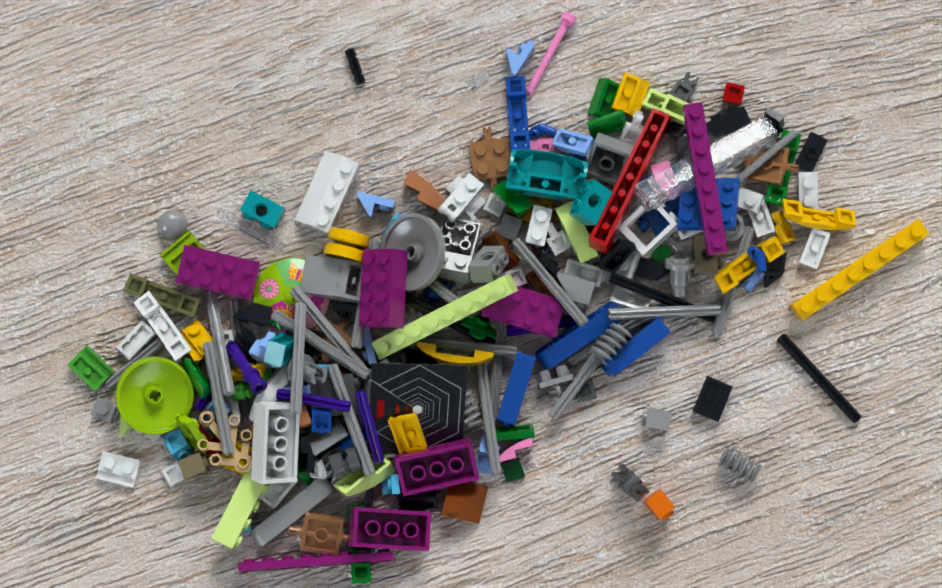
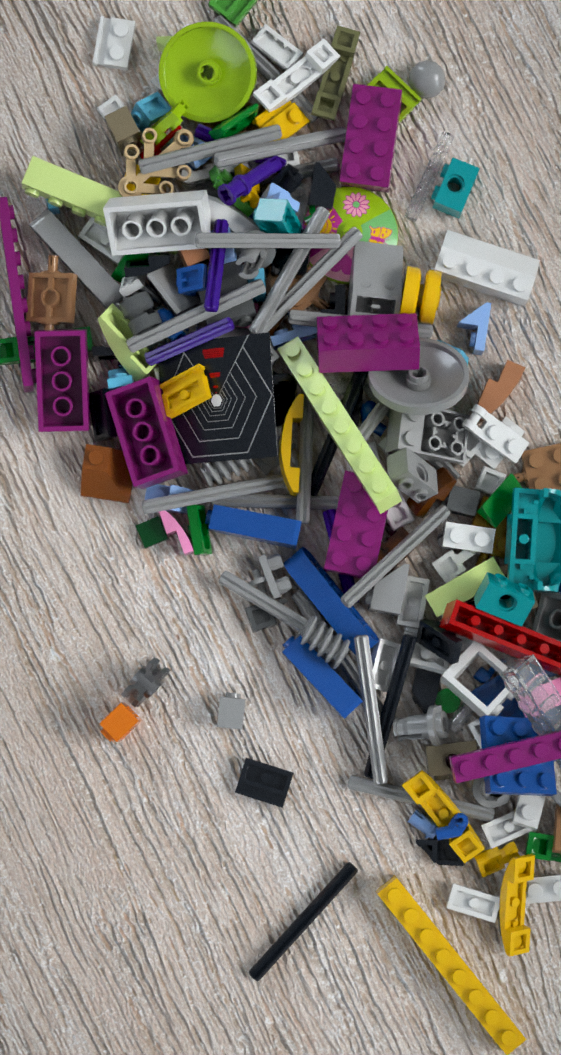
camera: 85 degrees right, 0 degrees up
(105, 410) = (184, 16): light grey bracket -> none
(479, 327) = (330, 472): green plate -> none
(549, 264) = (419, 556): black bracket -> none
(740, 464) = (181, 824): light grey piece -> none

